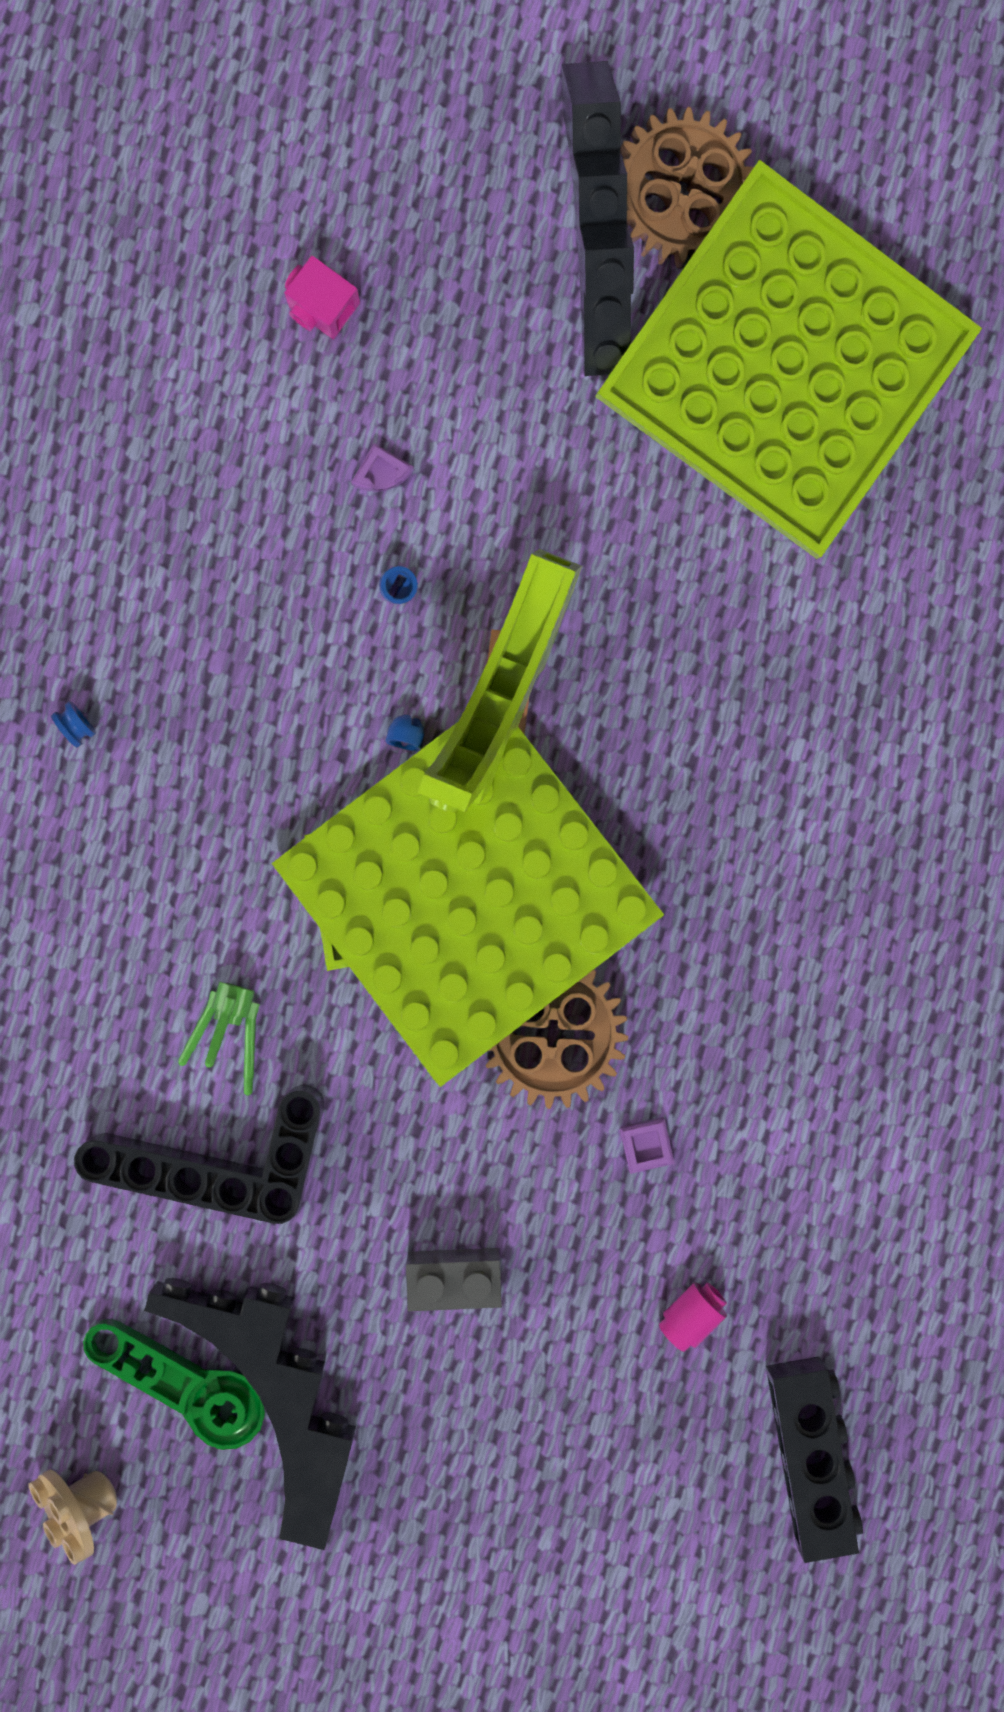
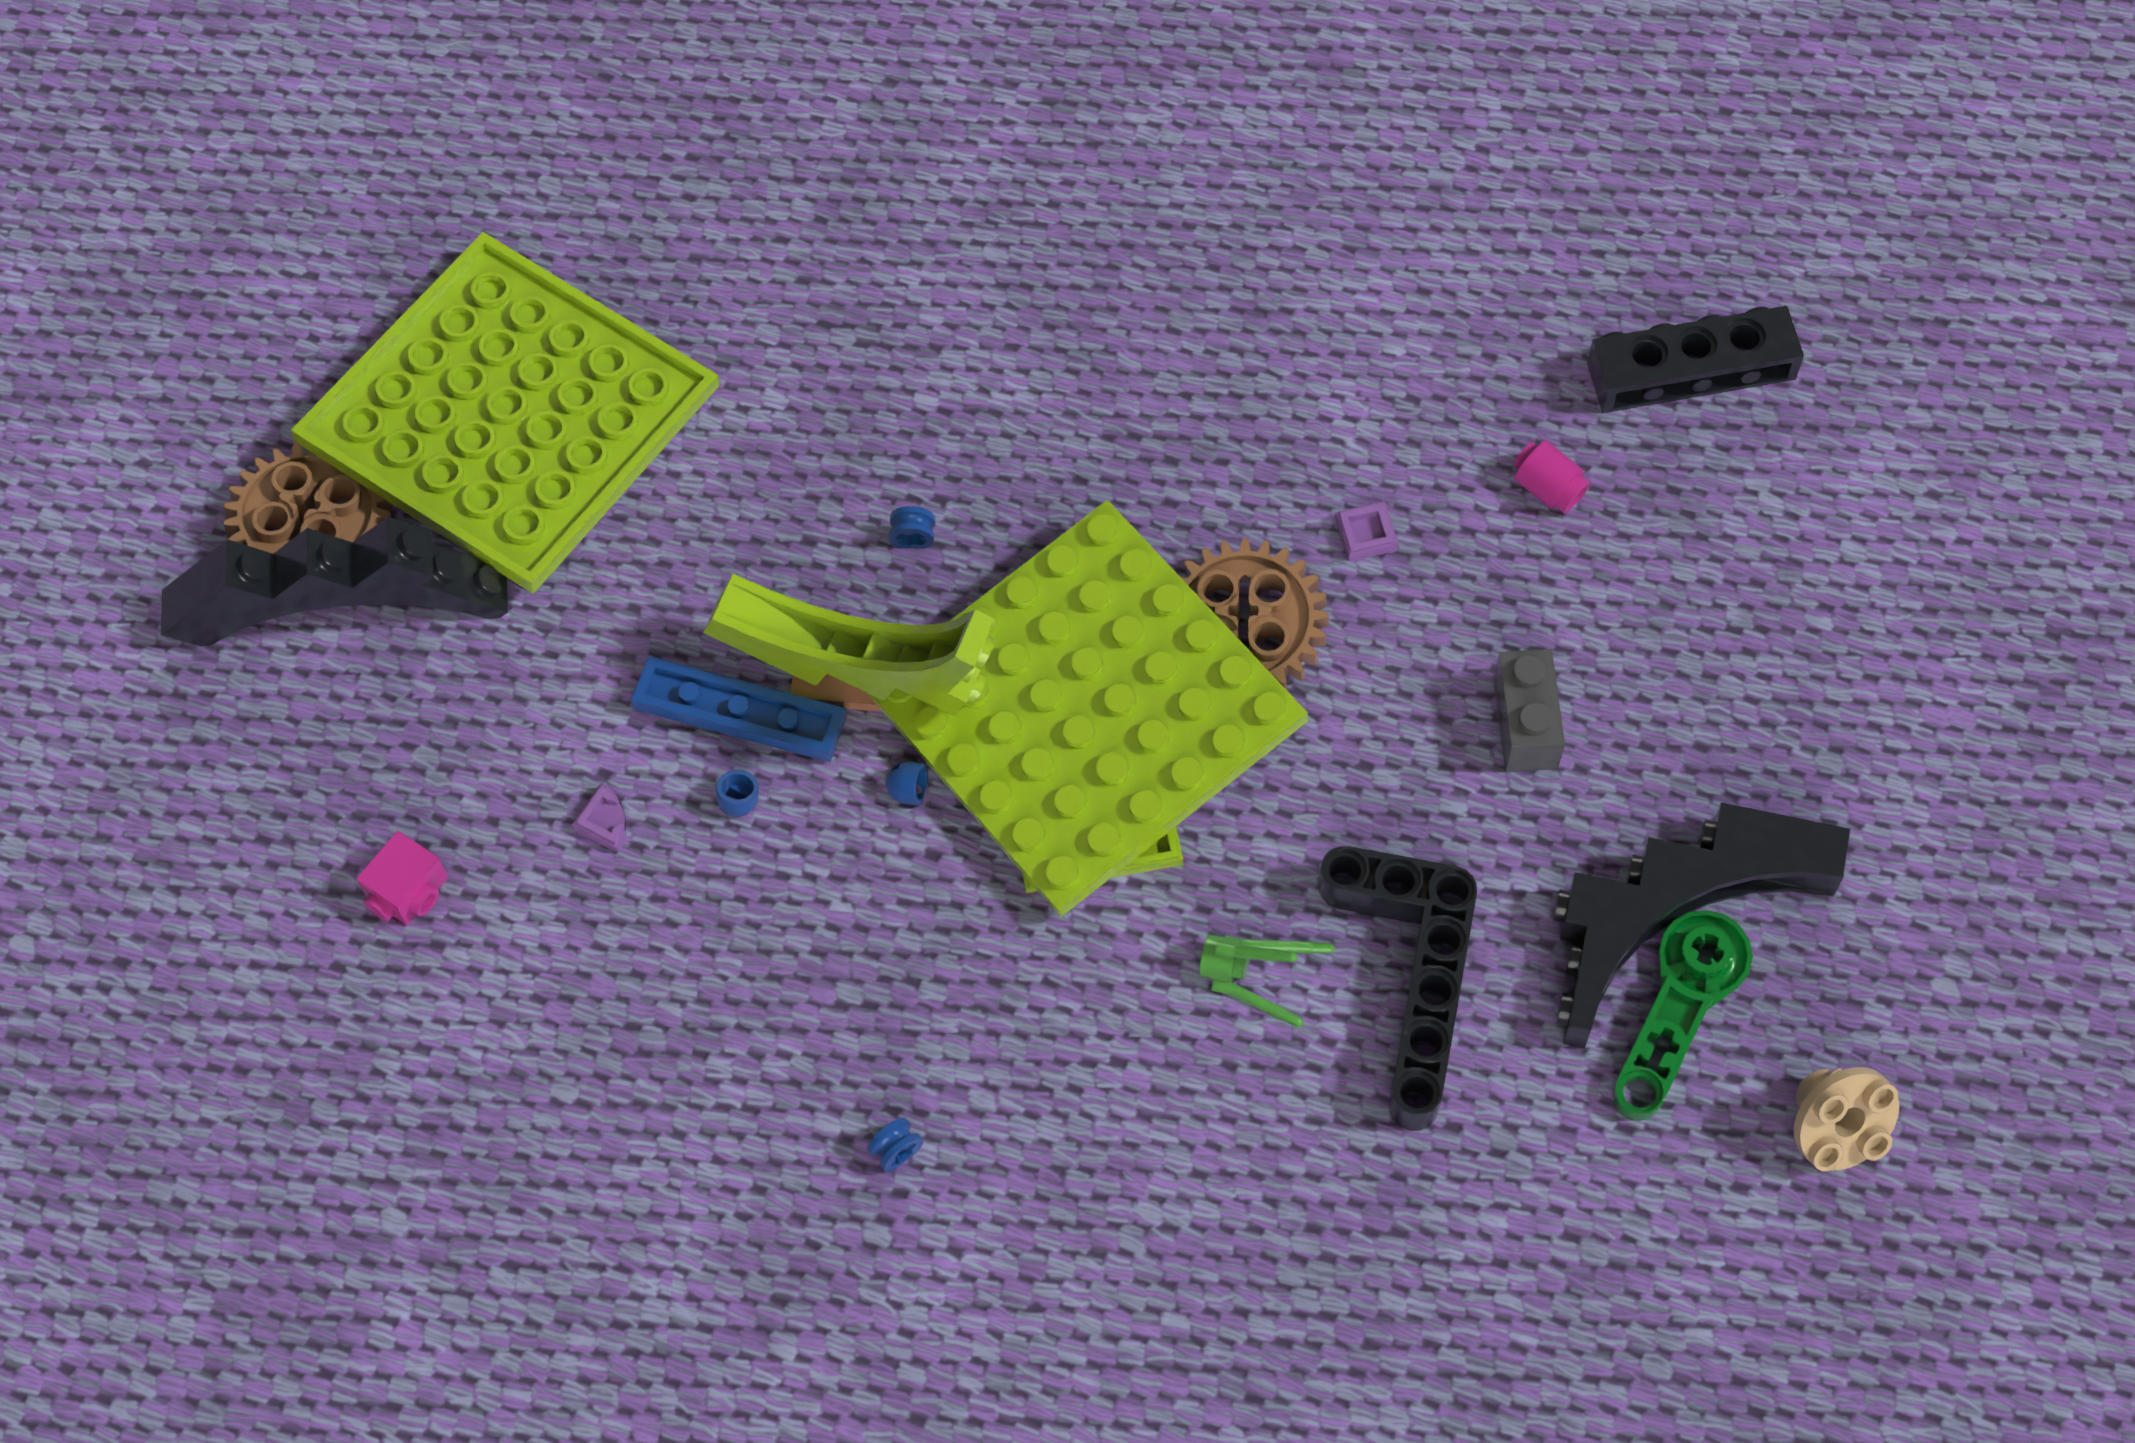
camera: 90 degrees left, 25 degrees down
(480, 584) = (739, 708): none -> blue plate
(656, 736) = (912, 527): none -> blue bush

